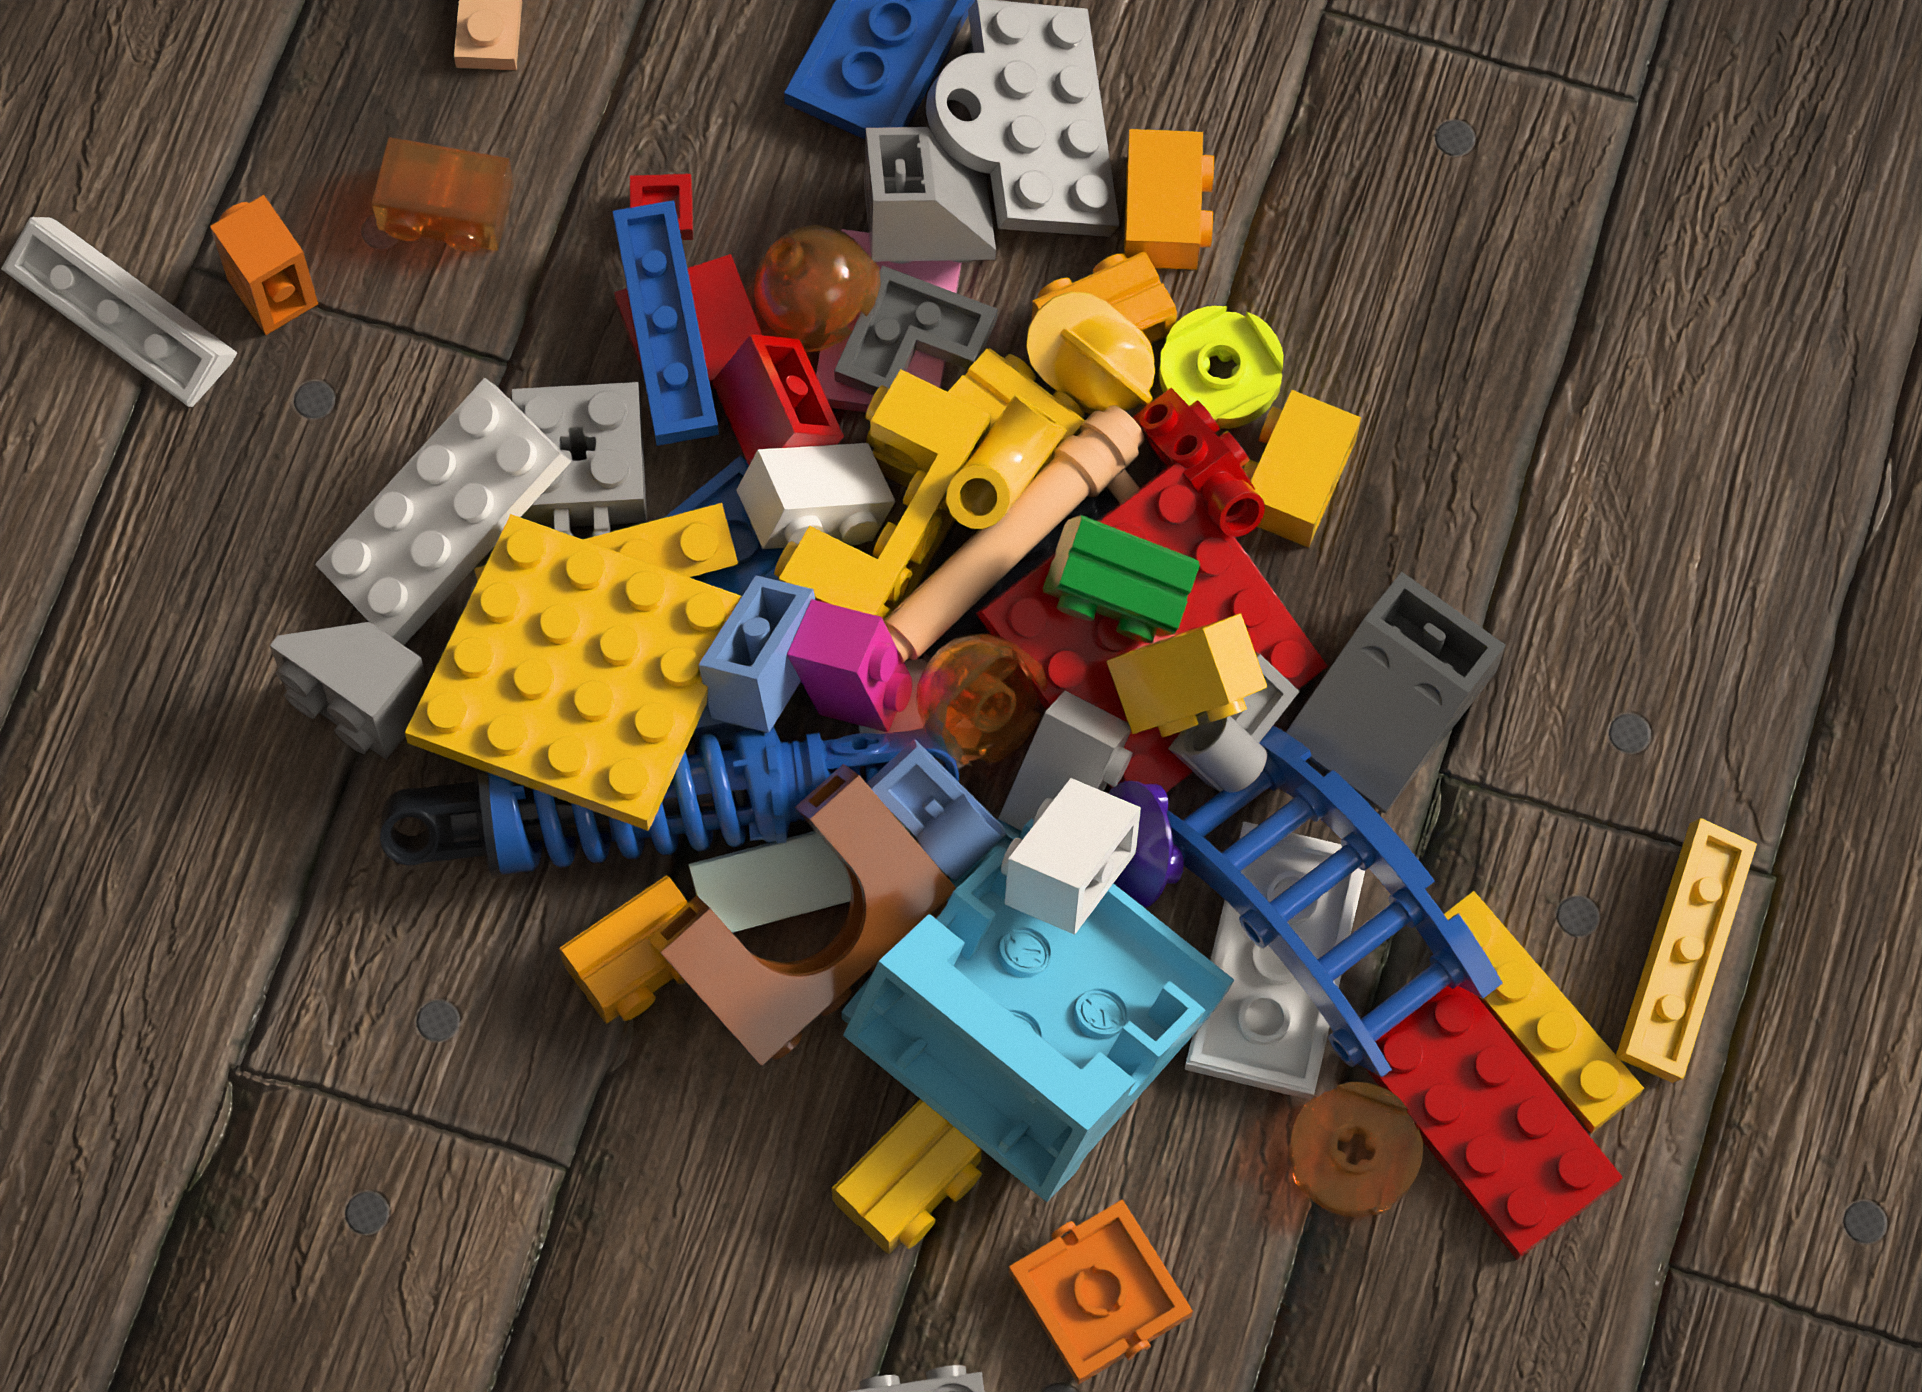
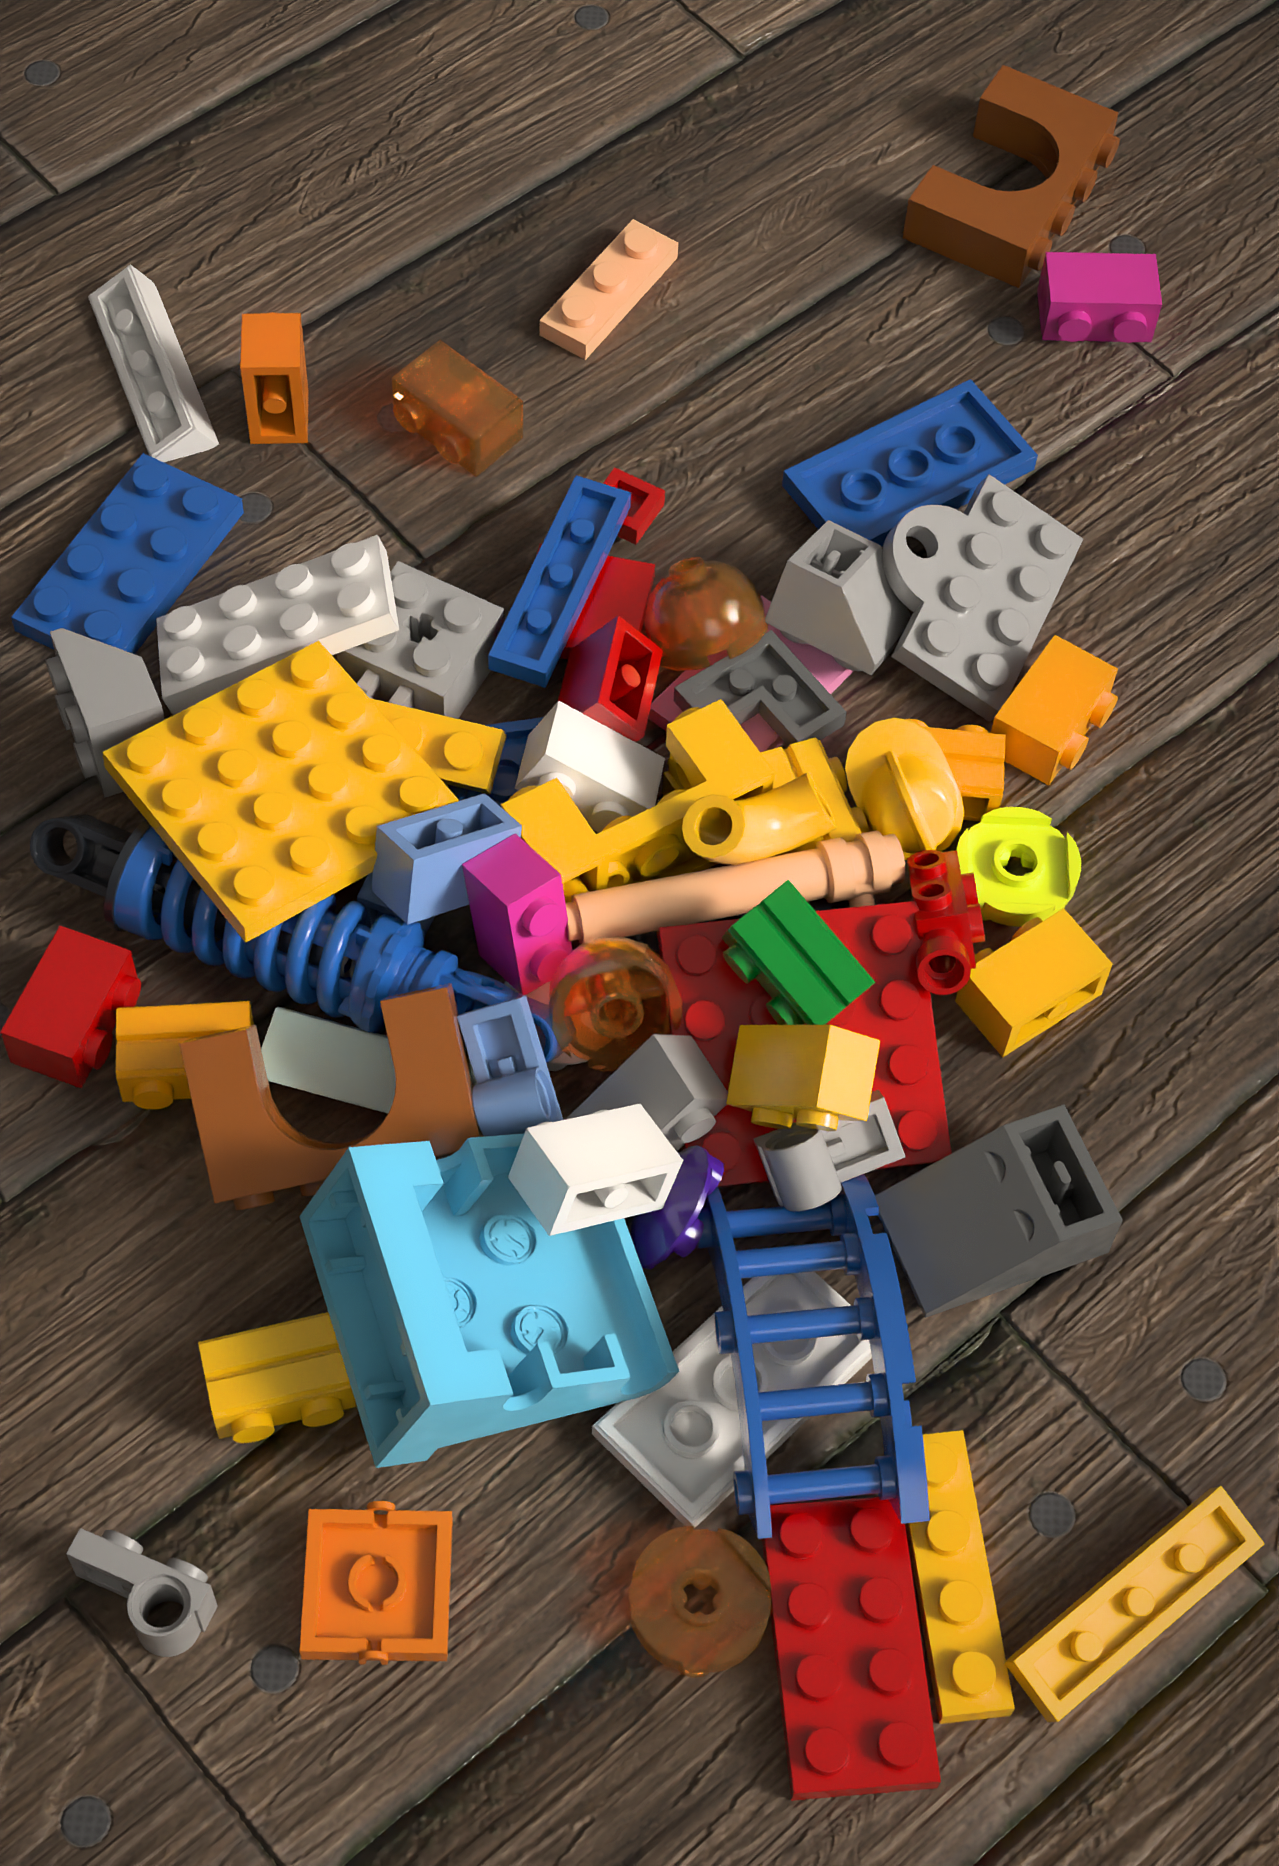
camera: 30 degrees right, 10 degrees down
(246, 523) = (131, 558): none -> blue plate
(510, 968) = (70, 1007): none -> red brick

